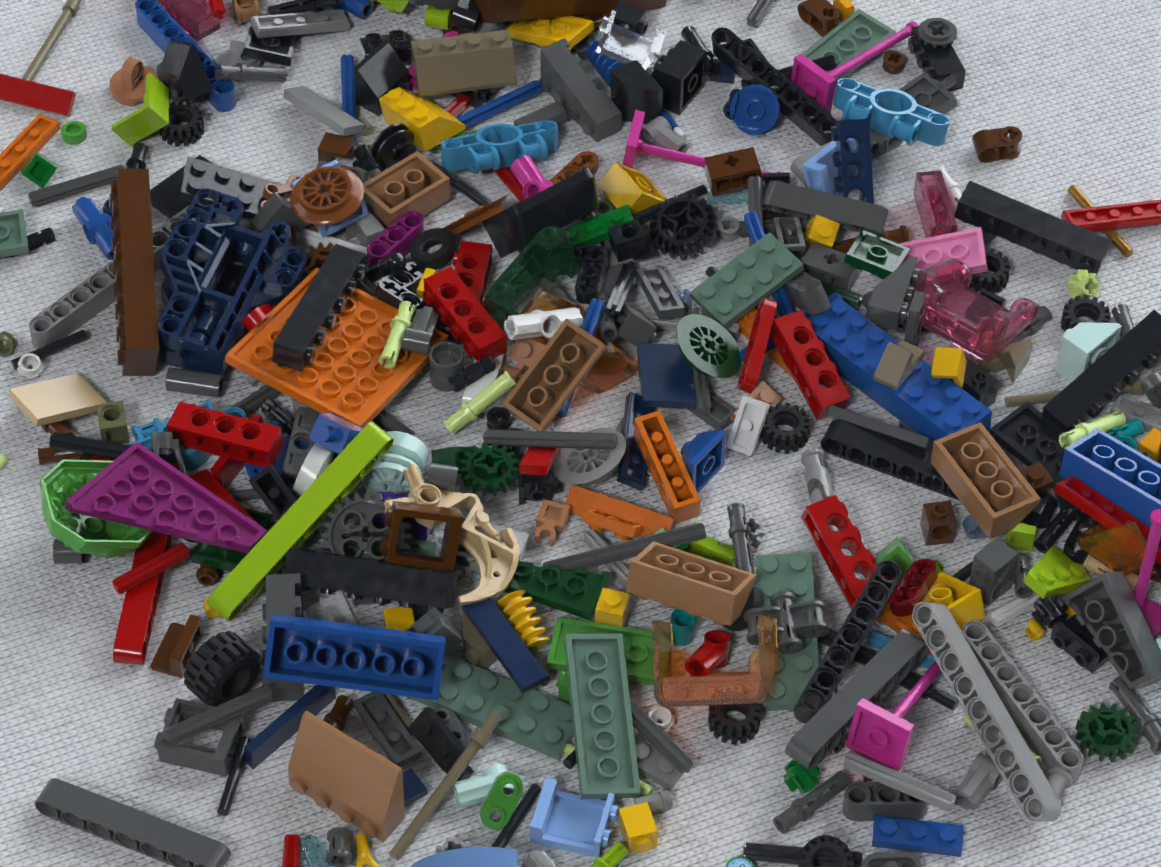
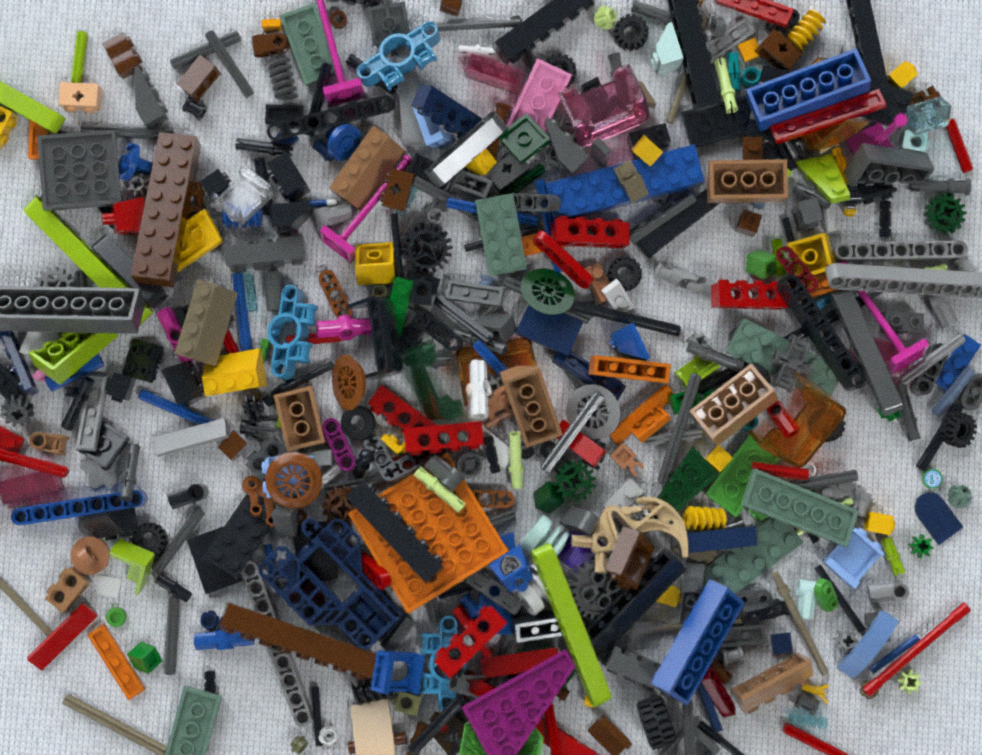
camera: 60 degrees left, 35 degrees up
(84, 77) = (70, 592): none -> medium nougat brick
(105, 115) = (108, 586): none -> white sticker
(111, 380) = (364, 692): none -> black piece
(169, 393) = (383, 670): none -> blue panel
(193, 150) = (178, 541): none -> dark grey axle
(254, 136) = (186, 496): none -> black piece
(288, 733) = (718, 693): none -> dark red beam
(344, 37) = (120, 387): none -> black brick
(354, 728) = (732, 656): none -> light grey bush
(413, 415) = (491, 492): none -> dark orange beam
(524, 105) = (250, 293): none -> clear light blue axle
(640, 682) = (781, 471): none -> red axle
(726, 133) = (367, 168): none -> medium nougat slope
(732, 451) = (626, 318): none -> black axle
(789, 37) = (280, 79): none -> dark grey piece
(878, 841) = (953, 391): none -> sand blue axle
(929, 742) = (904, 322): none -> dark grey brick
(970, 166) = (478, 25): none -> dark grey piece
(1053, 672) = (885, 219): none -> black axle

